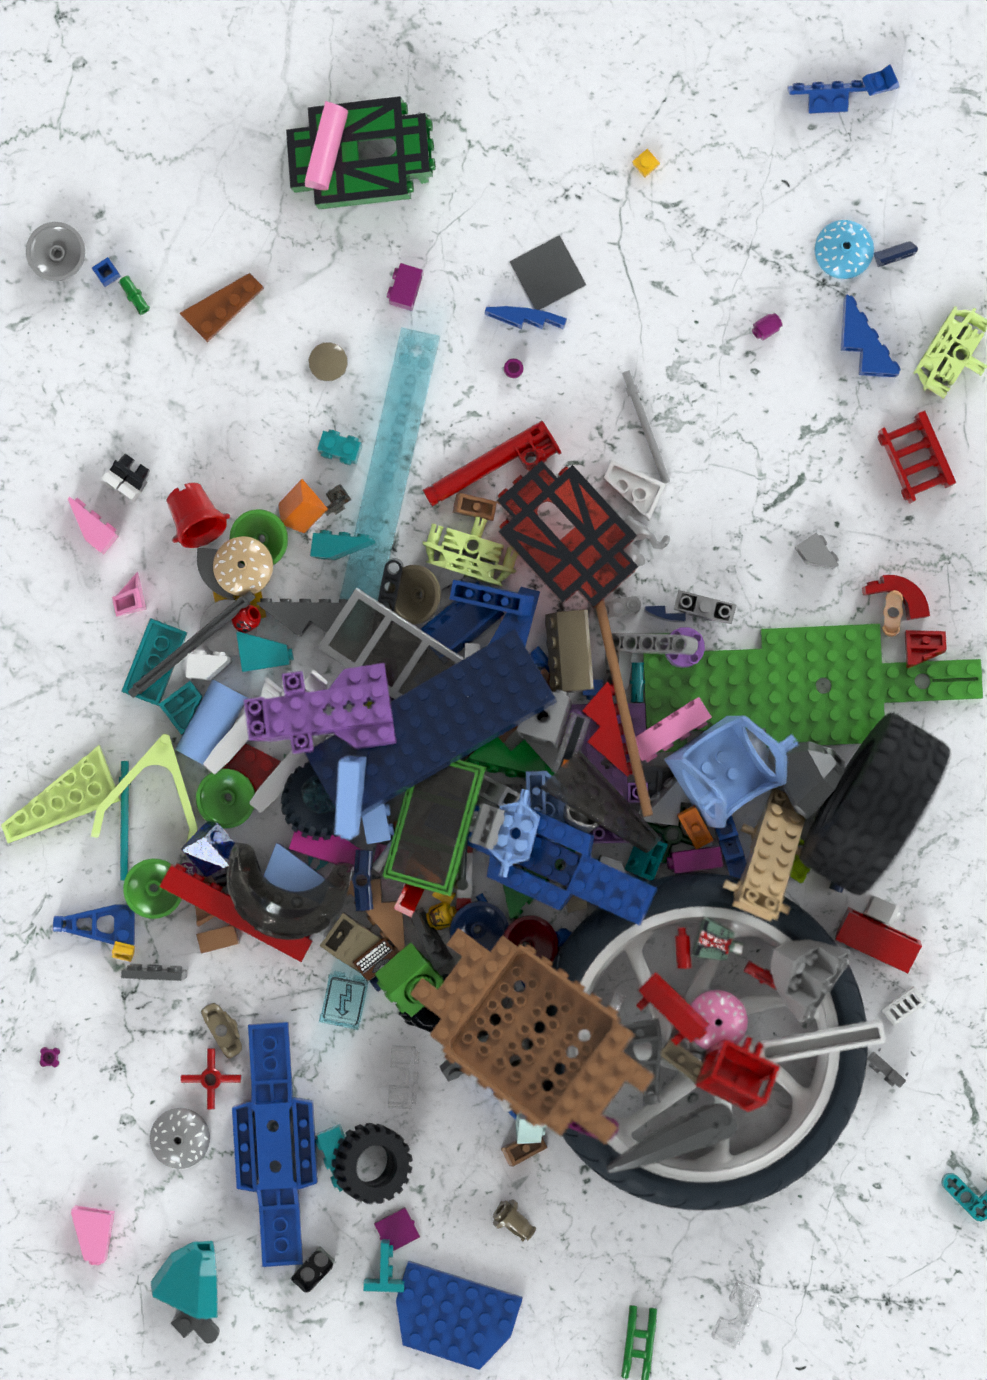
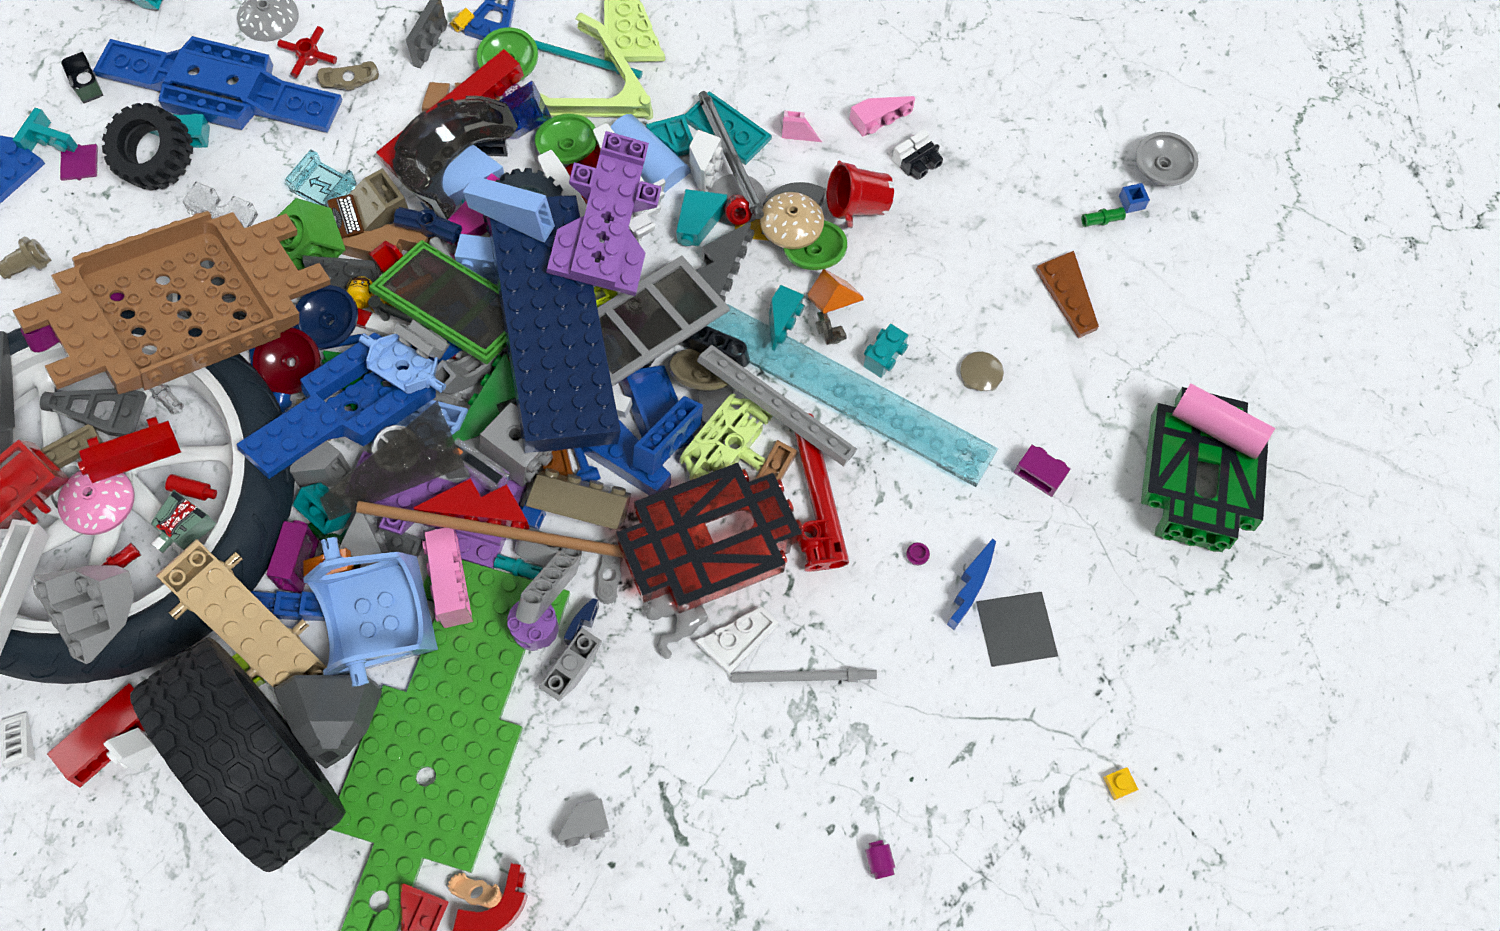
camera: 105 degrees right, 20 degrees down
(431, 519) = (777, 405): none -> light grey plate

